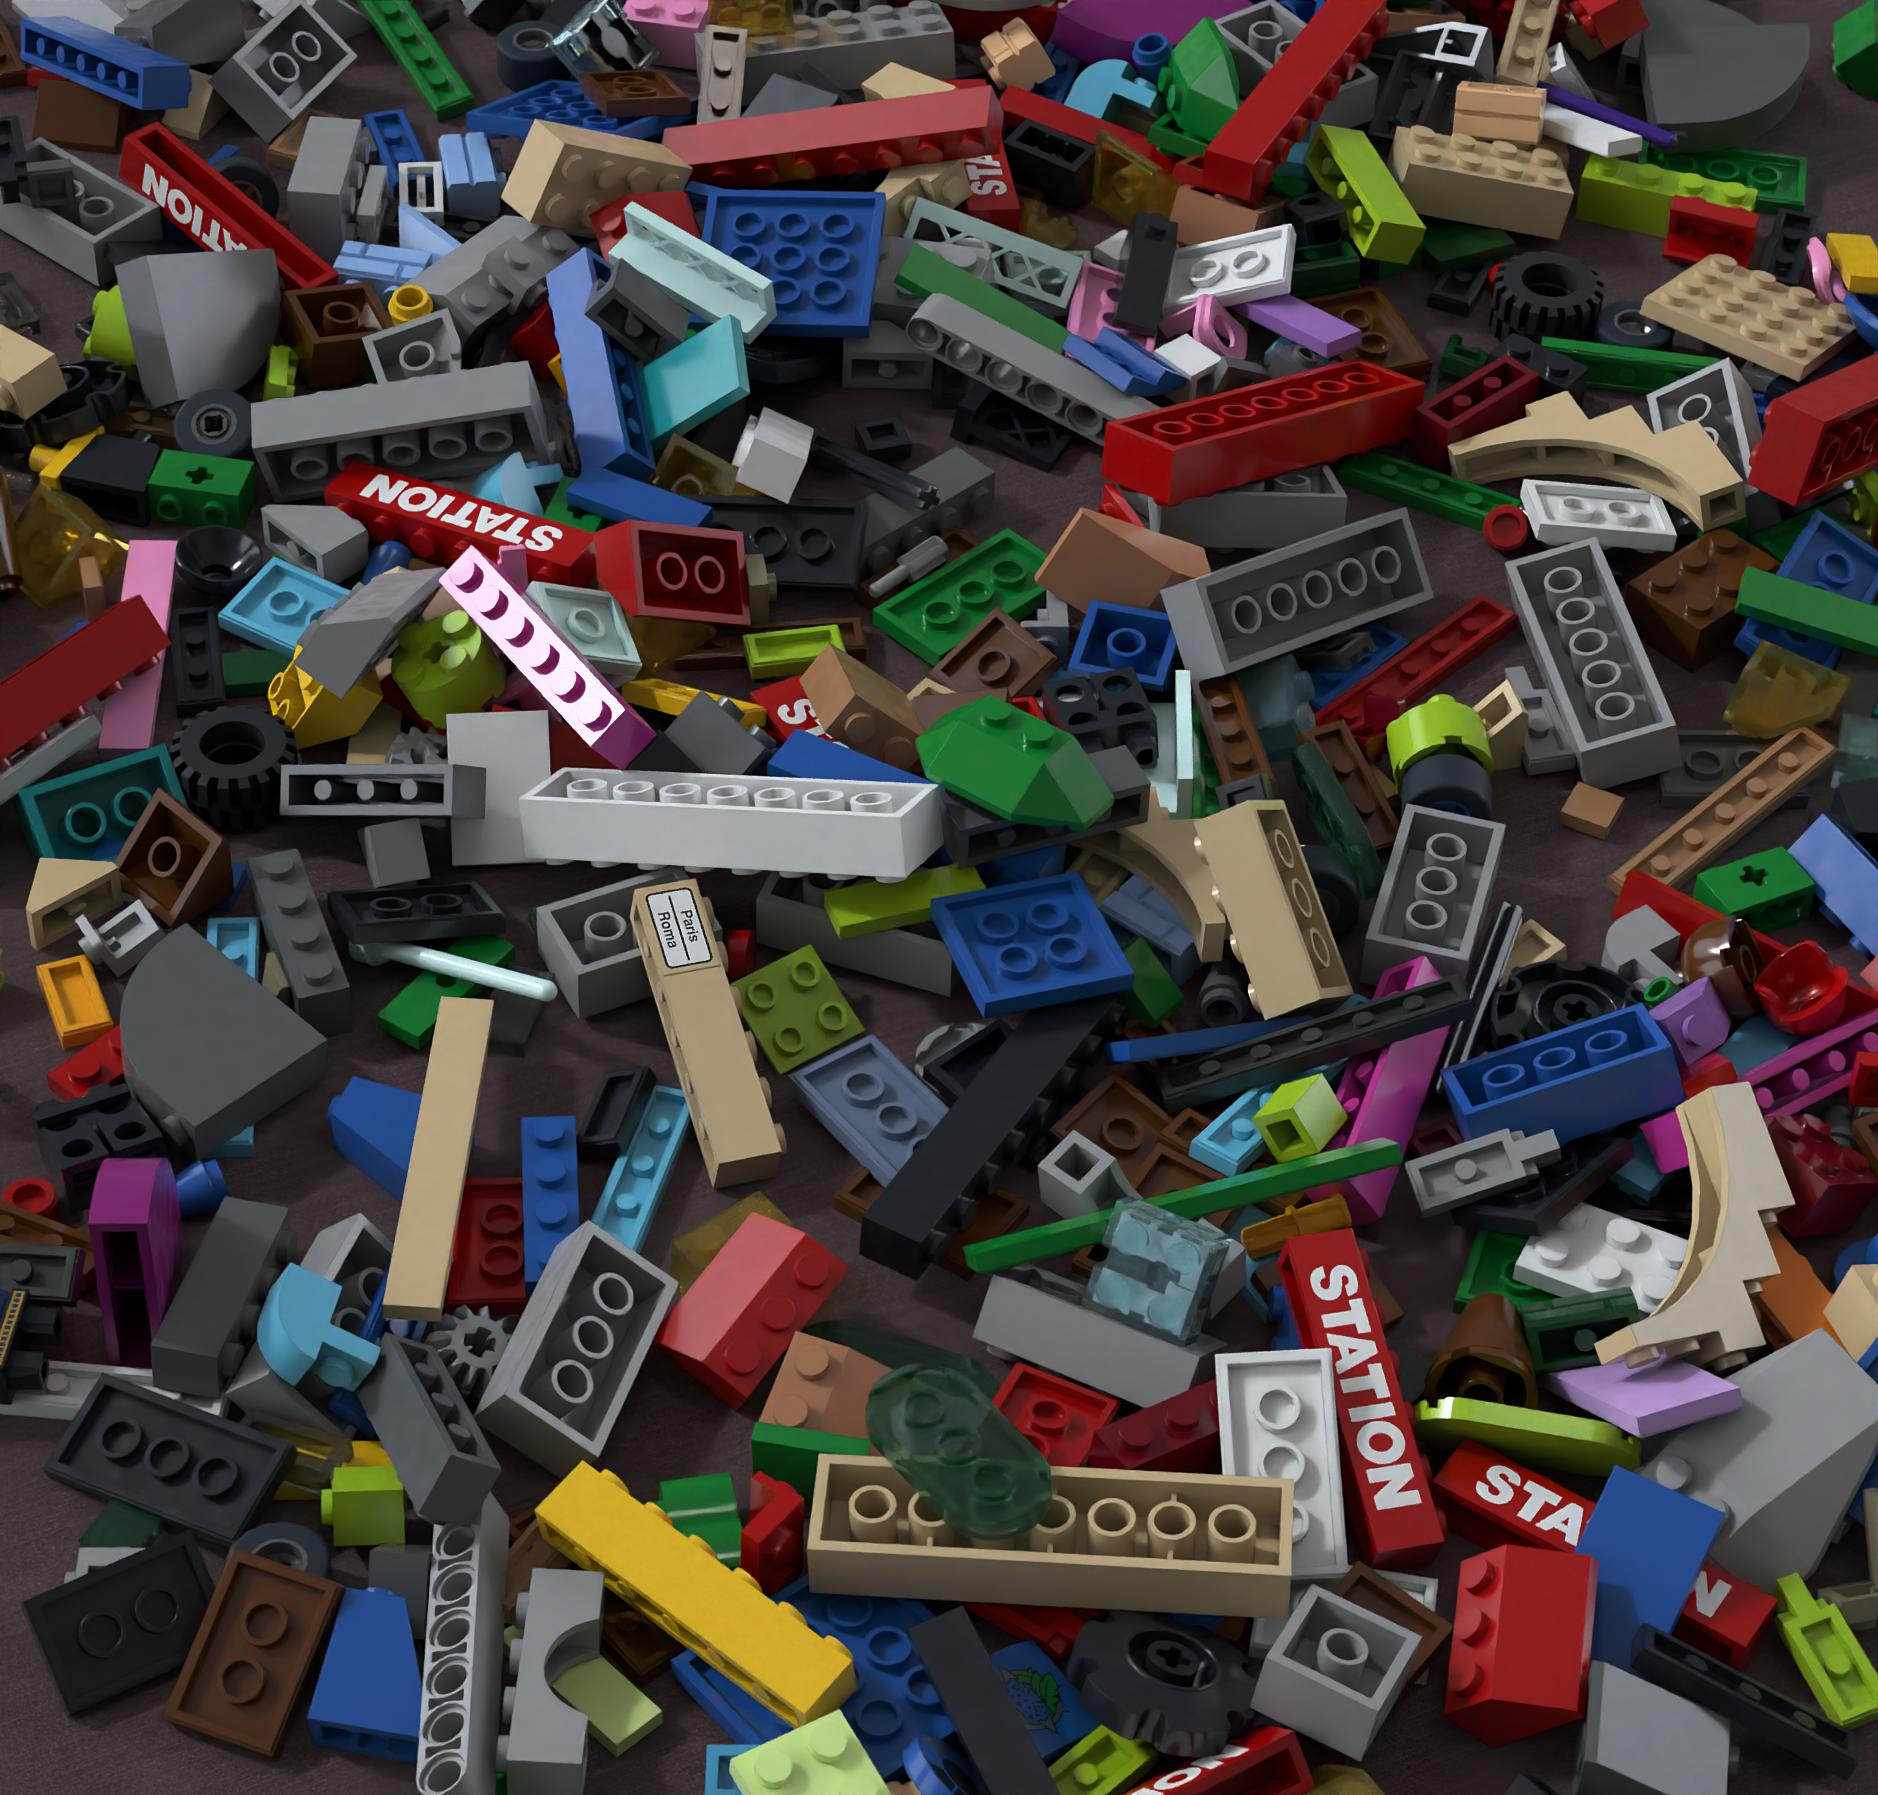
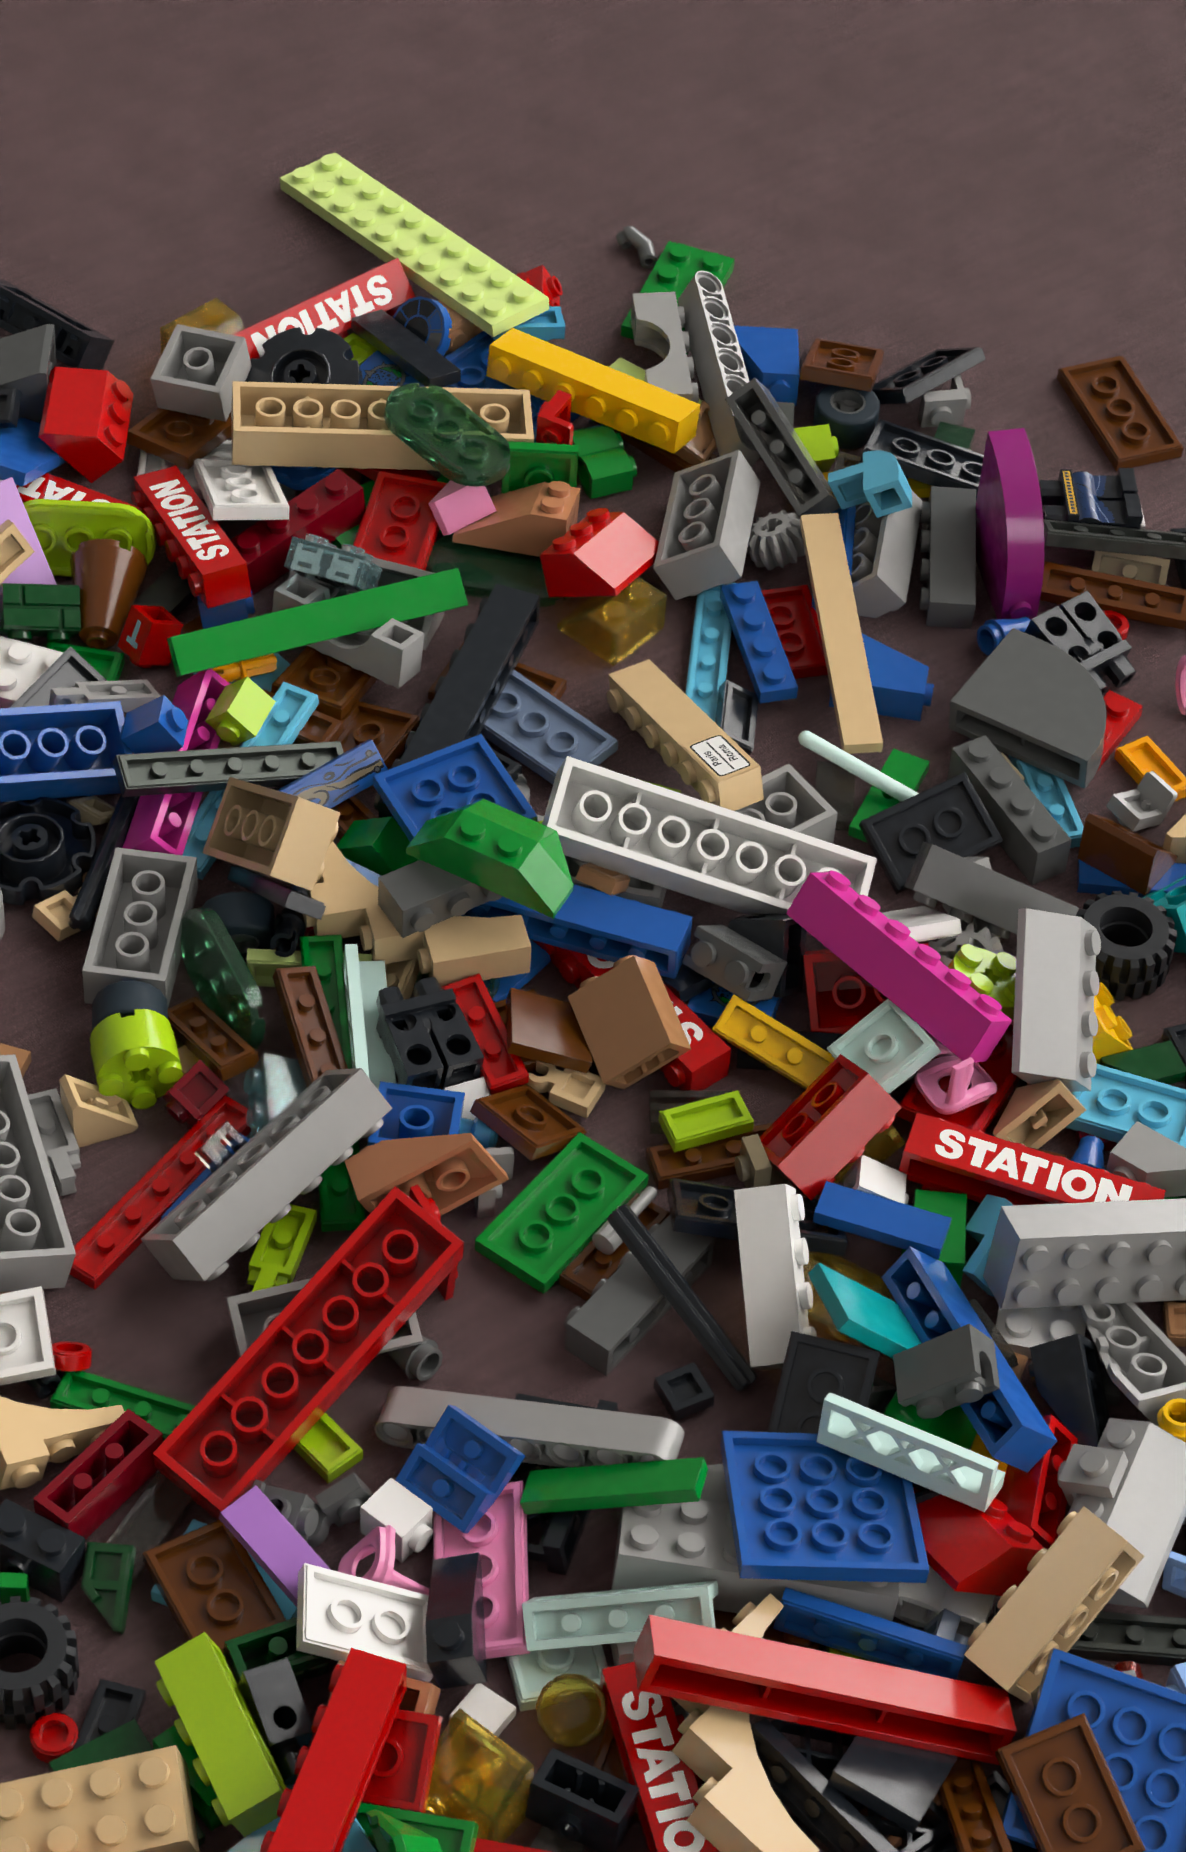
camera: 170 degrees right, 5 degrees up
(1417, 1086) = (155, 727): none -> blue brick
(1419, 1285) = (147, 634): none -> red brick

